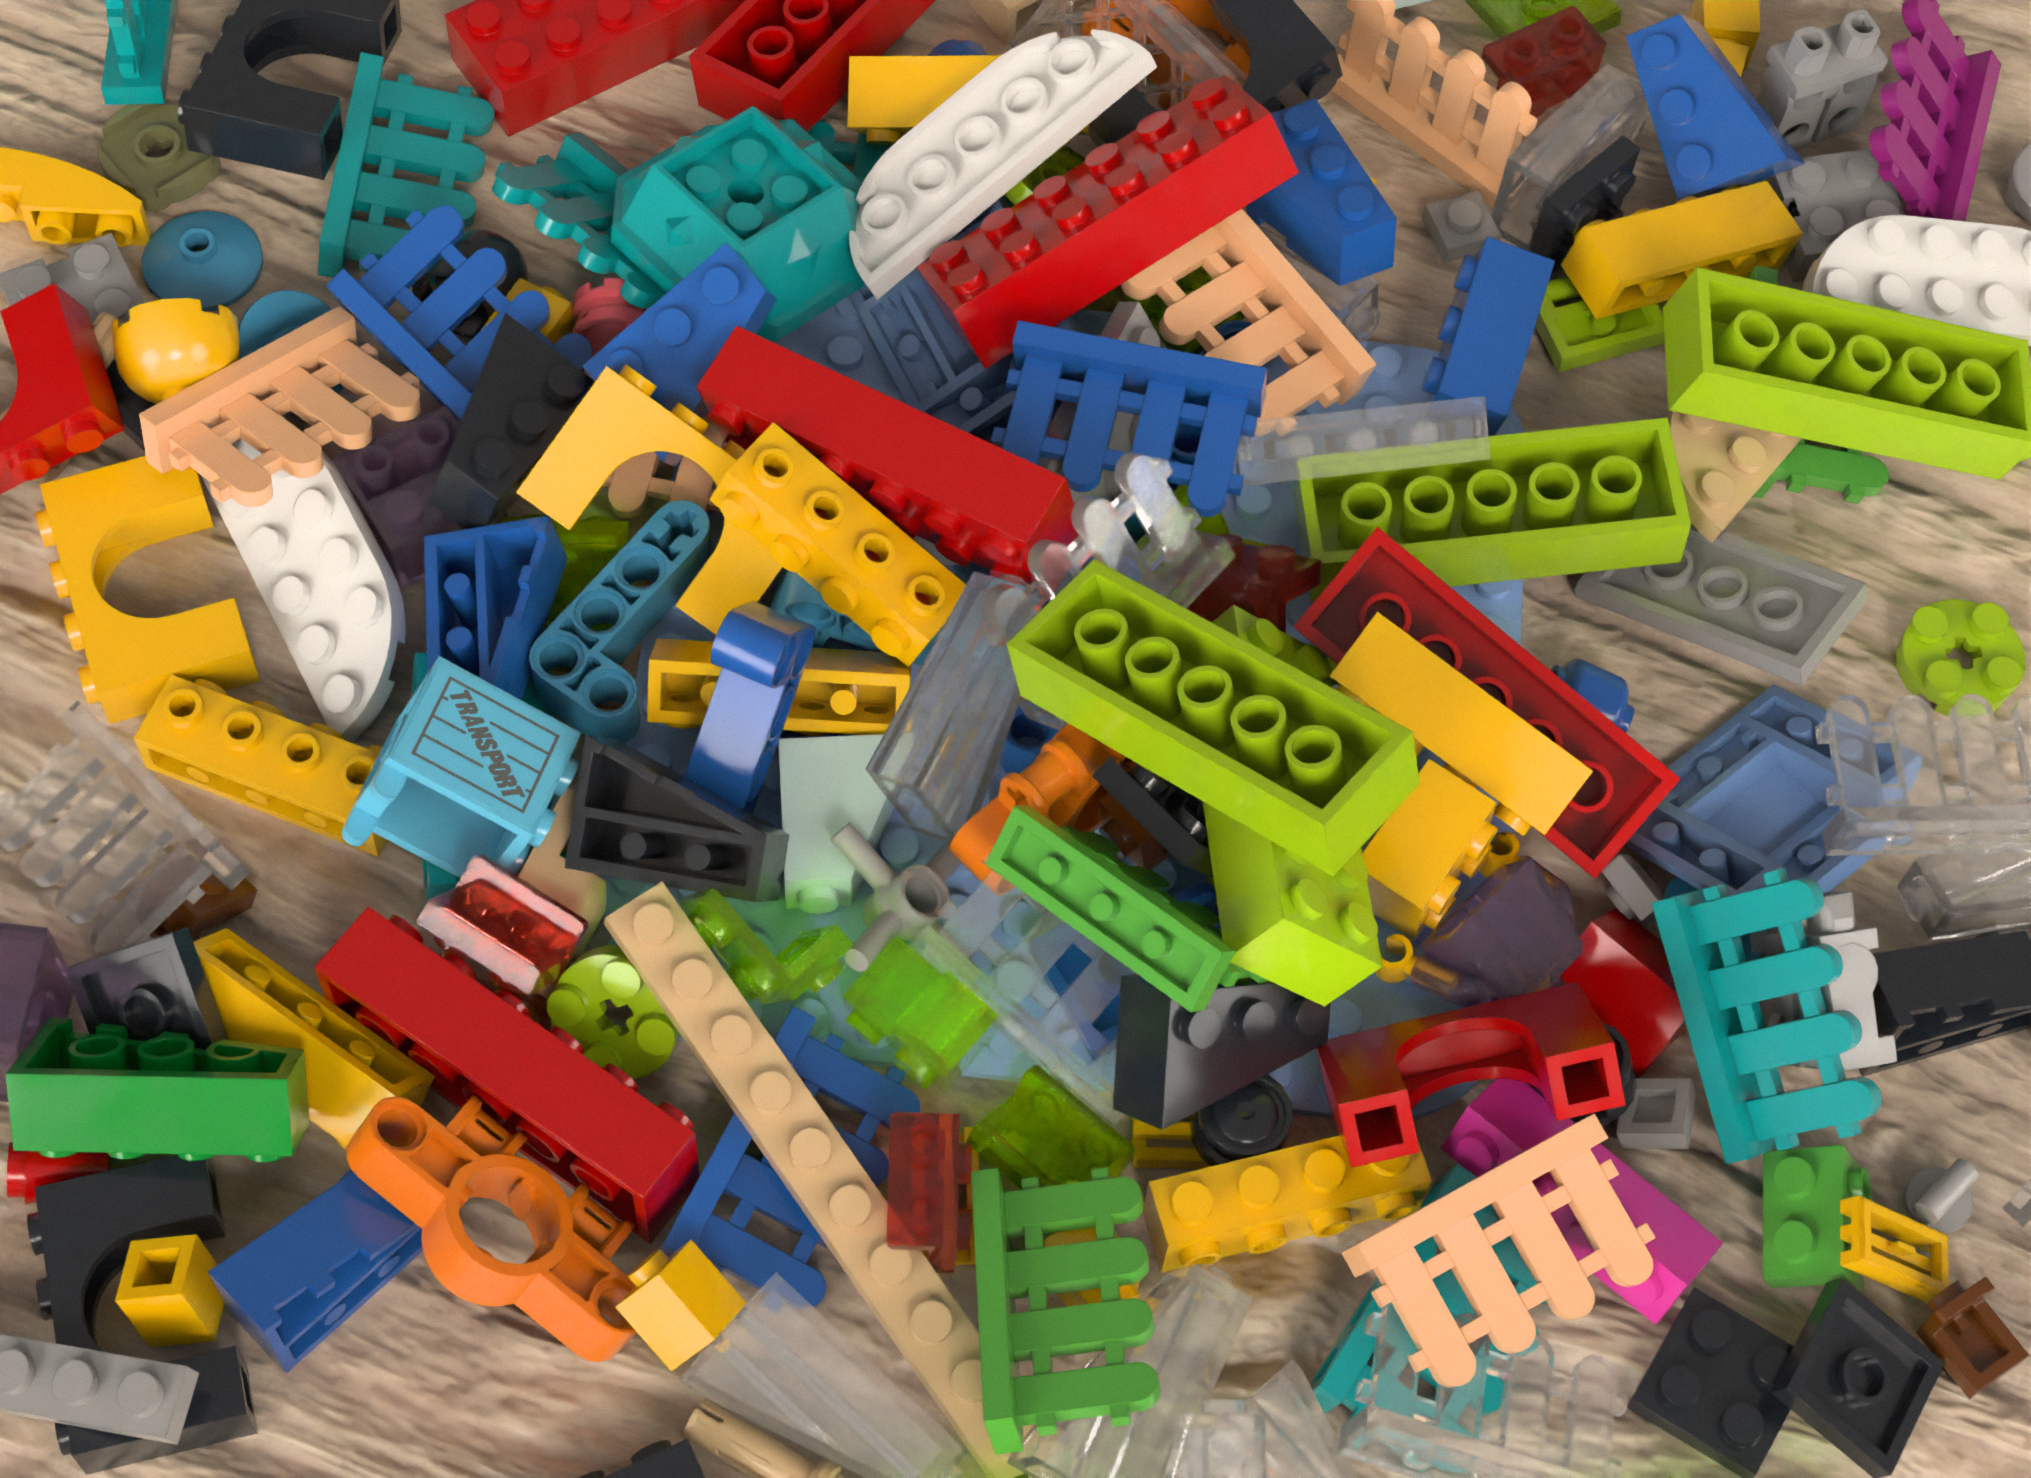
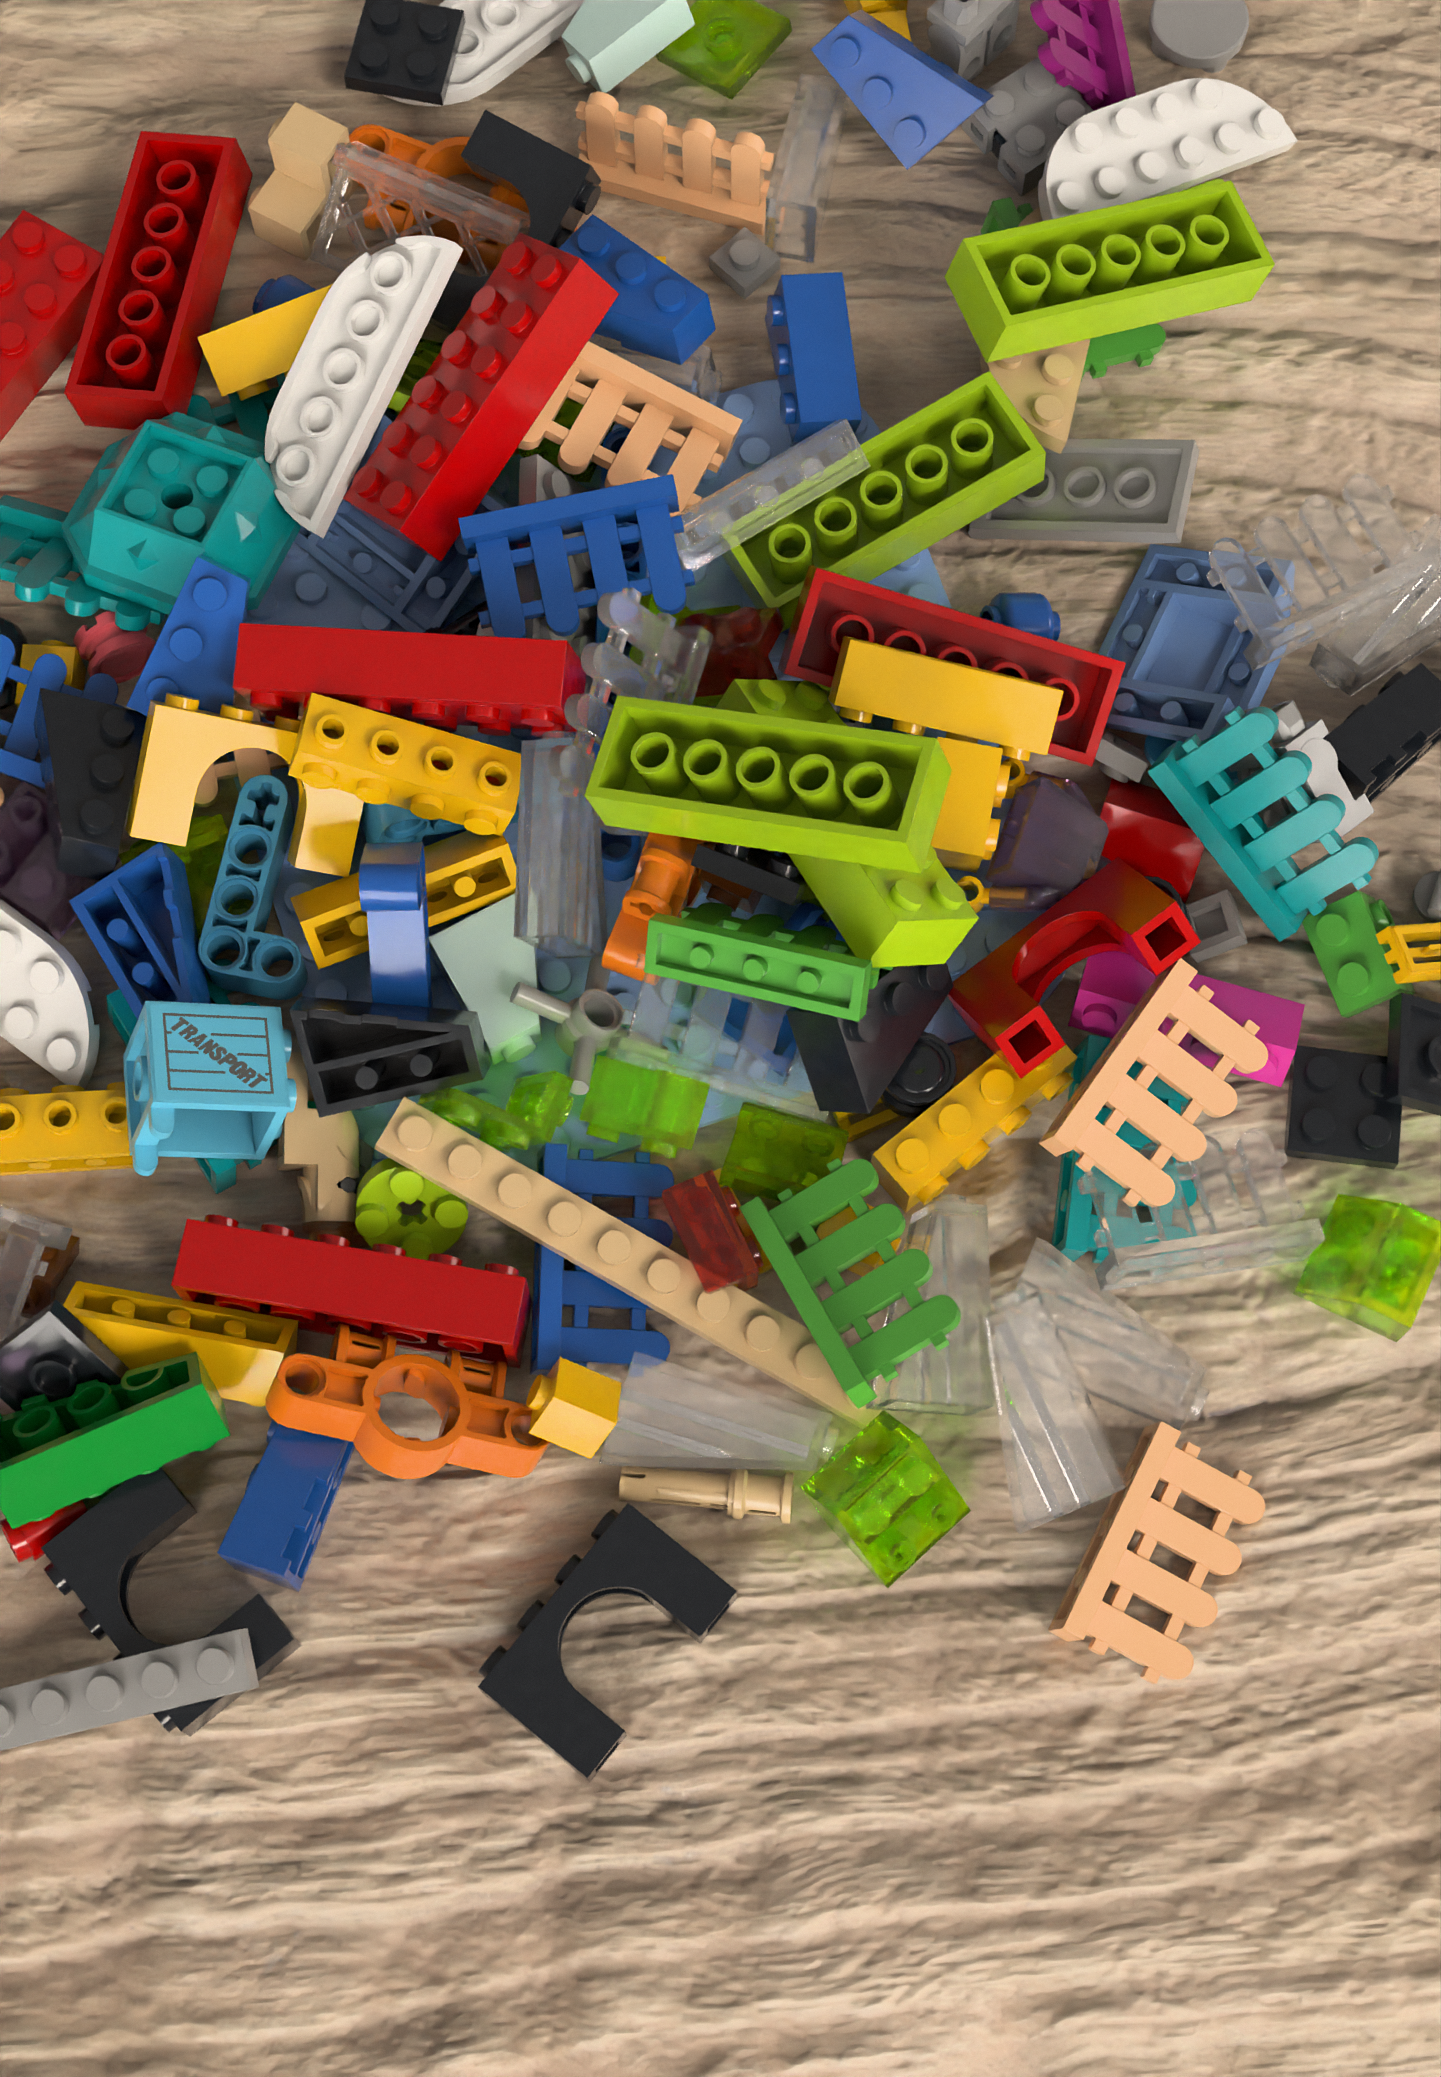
camera: 20 degrees left, 10 degrees up
(170, 1292) = (187, 1574): yellow brick -> none
(504, 926) = (298, 1184): clear red bracket -> none
(1548, 57) = (750, 89): clear red bracket -> none
(1580, 339) = (896, 298): lime plate -> none
(1587, 196) = (839, 210): black plate -> none
(1654, 251) = (927, 211): yellow brick -> none
(1968, 626) = (1287, 432): lime plate -> none

